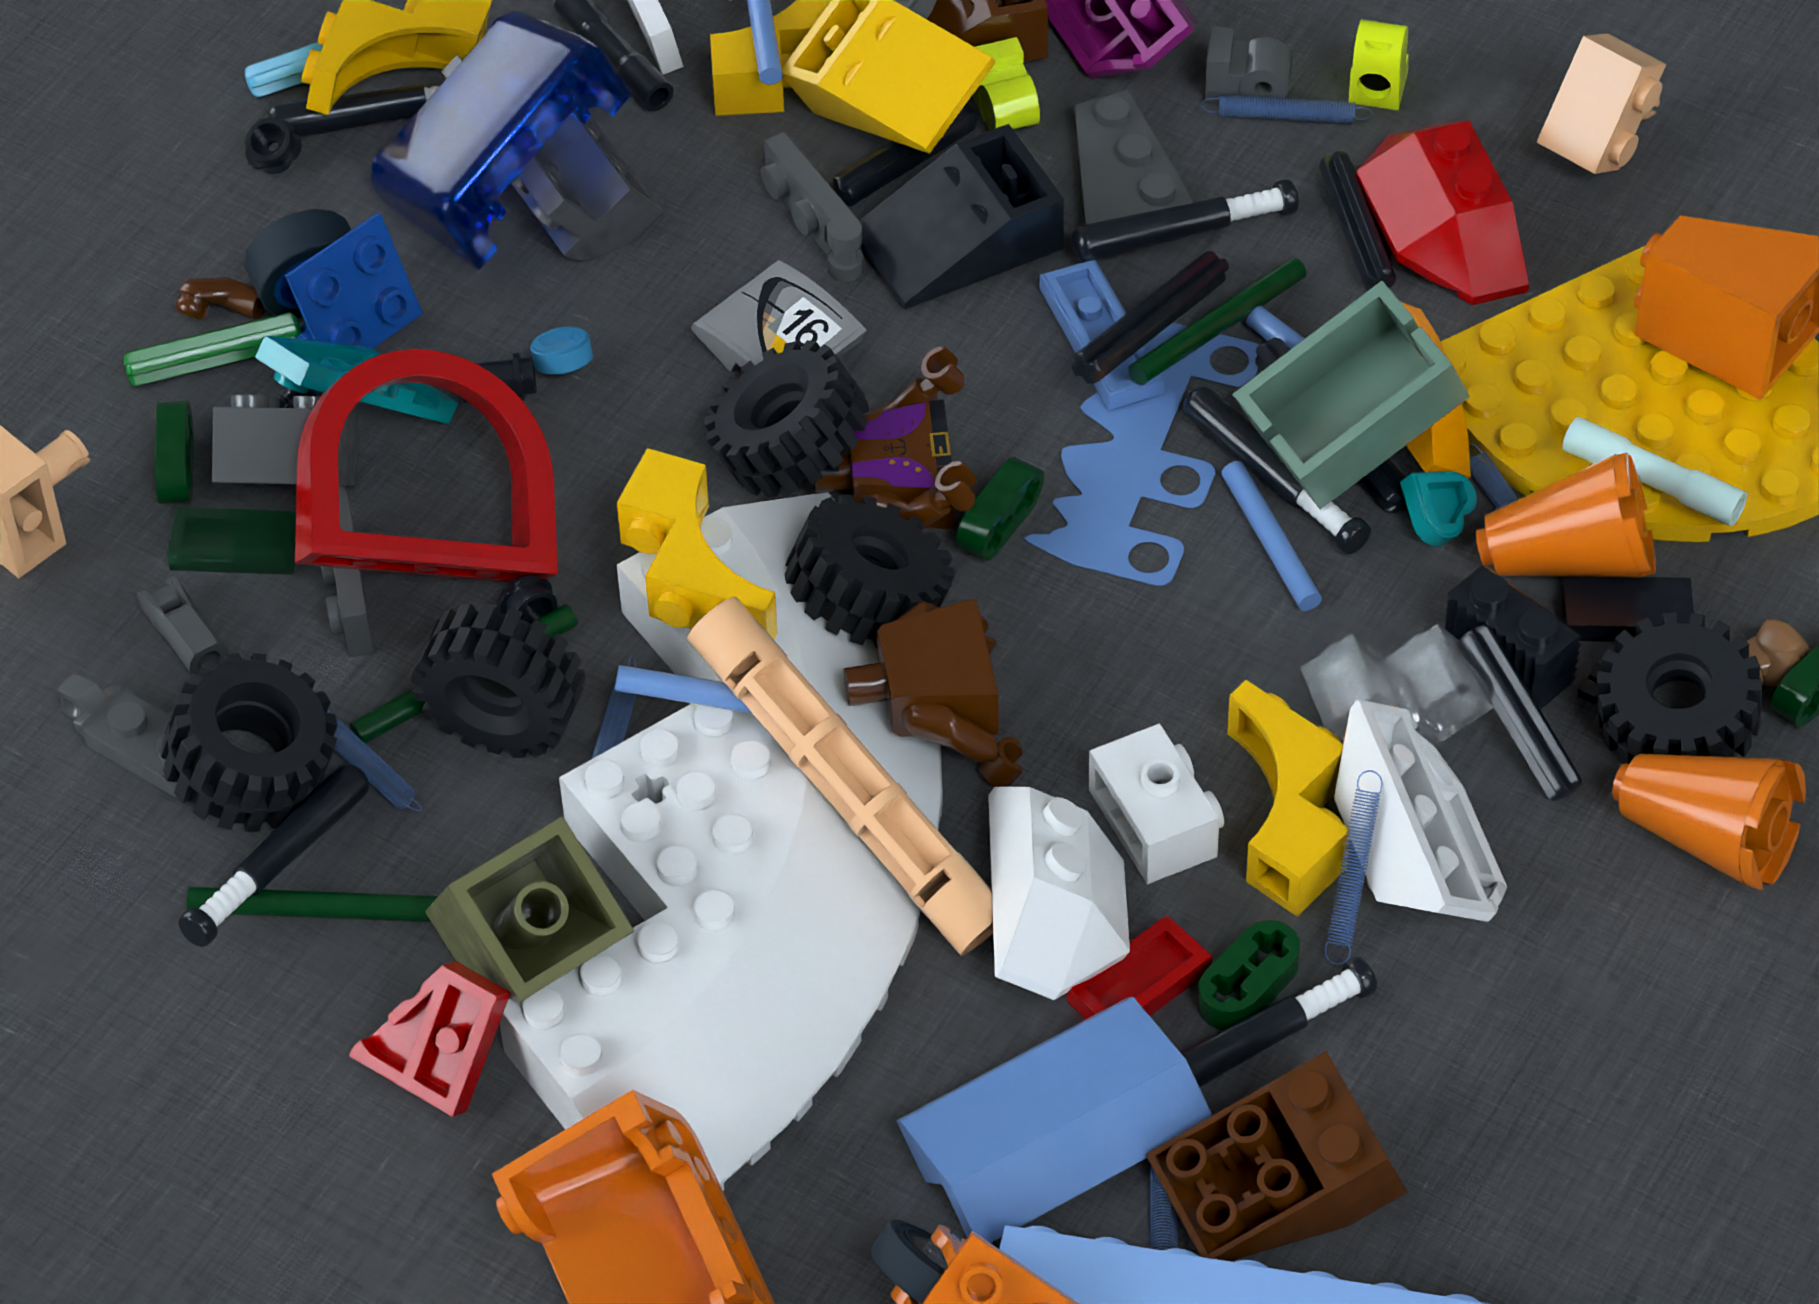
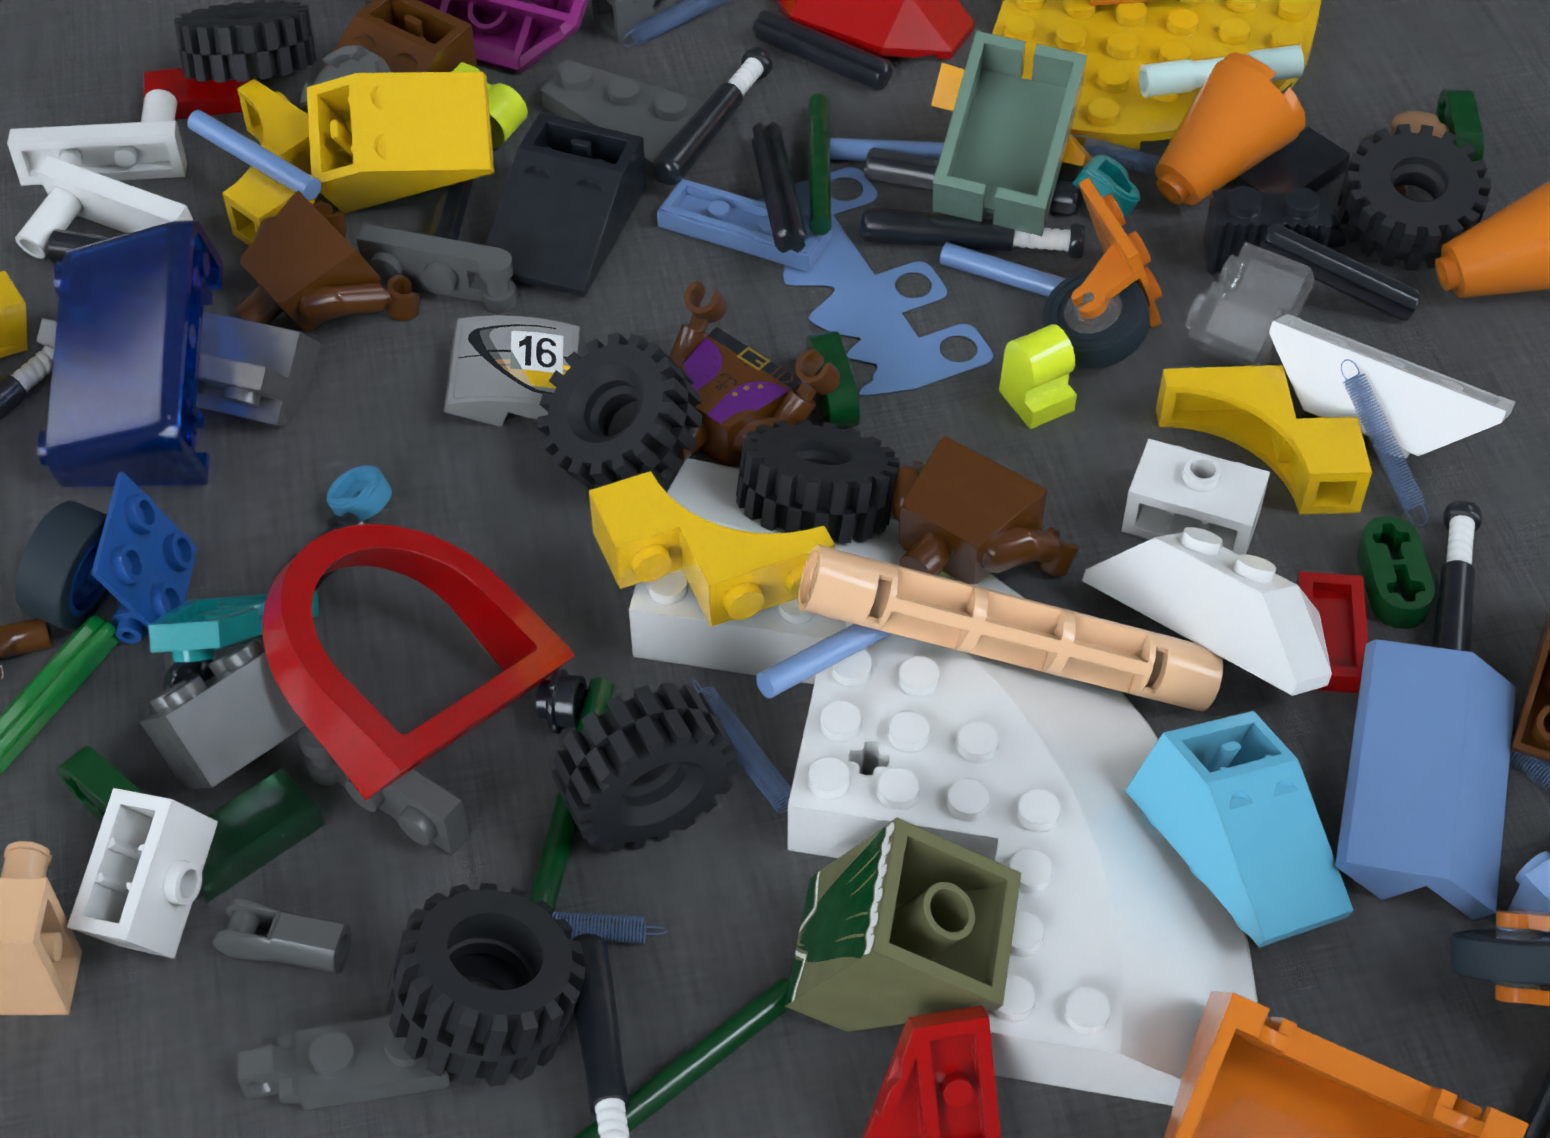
camera: 45 degrees left, 0 degrees up
(127, 512) = (143, 873): none -> white brick
(713, 145) = (315, 271): none -> reddish brown torso
(856, 1040) = (1244, 825): none -> medium azure slope
(1159, 620) = (1038, 375): none -> neon yellow leg
(1314, 593) = (1114, 303): none -> plate

